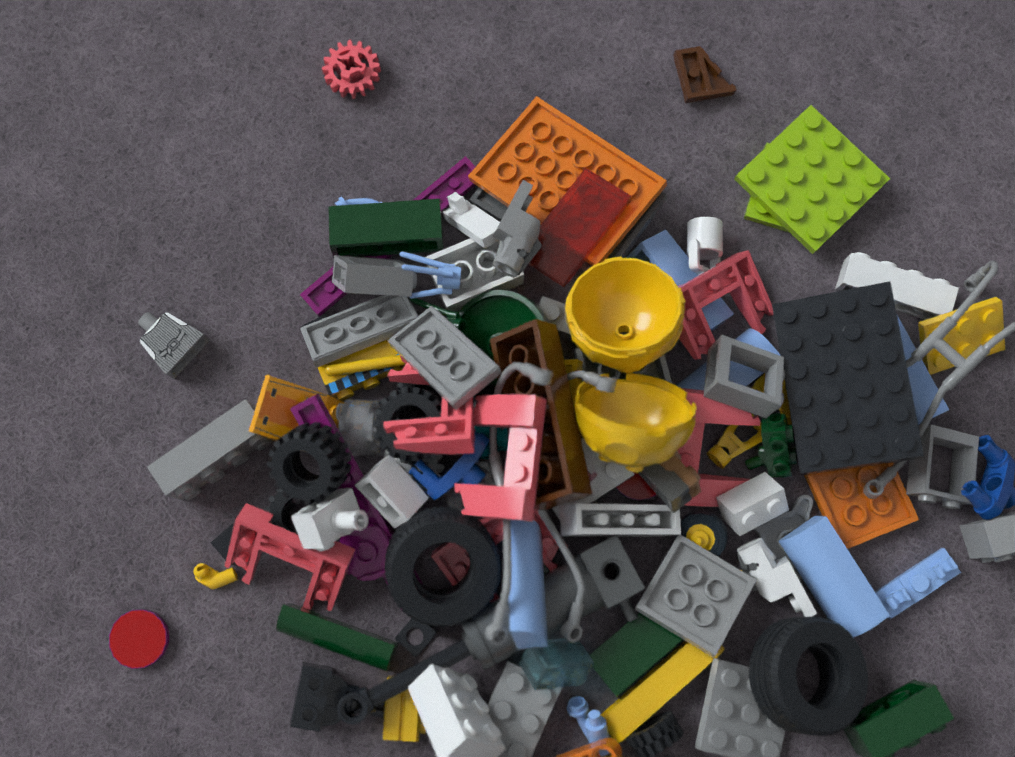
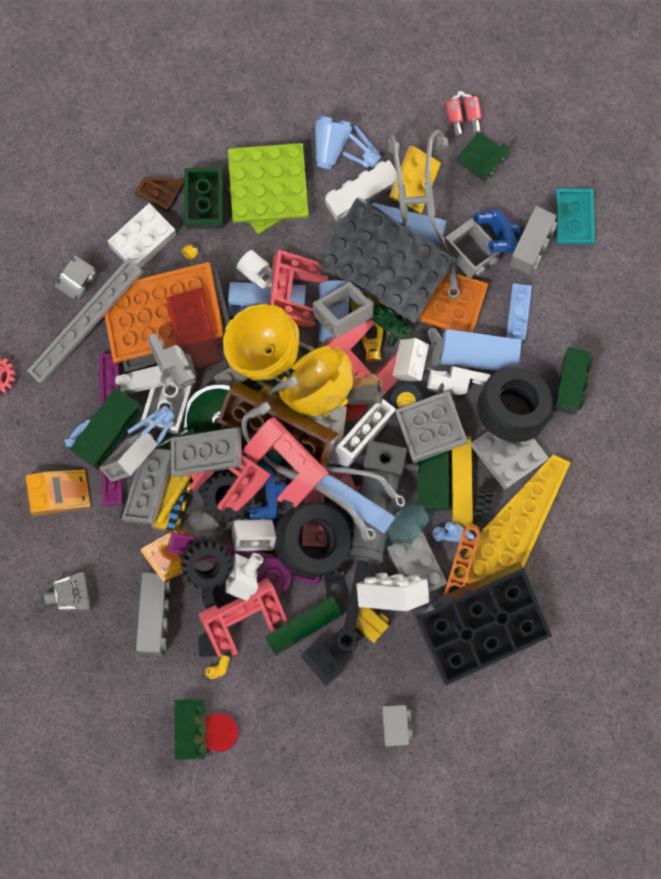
camera: 50 degrees left, 0 degrees up
(111, 603) = (190, 729): none -> dark green brick
(275, 234) = (57, 491): none -> light orange slope
(490, 109) = (85, 321): none -> light grey plate
(527, 63) = (75, 278): none -> light grey brick
(633, 97) = (142, 236): none -> white brick
(662, 160) = (189, 252): none -> yellow hinge
(733, 124) = (203, 198): none -> dark green brick
(921, 205) = (330, 140): none -> light blue cone
(942, 265) = (371, 155): none -> light blue plant

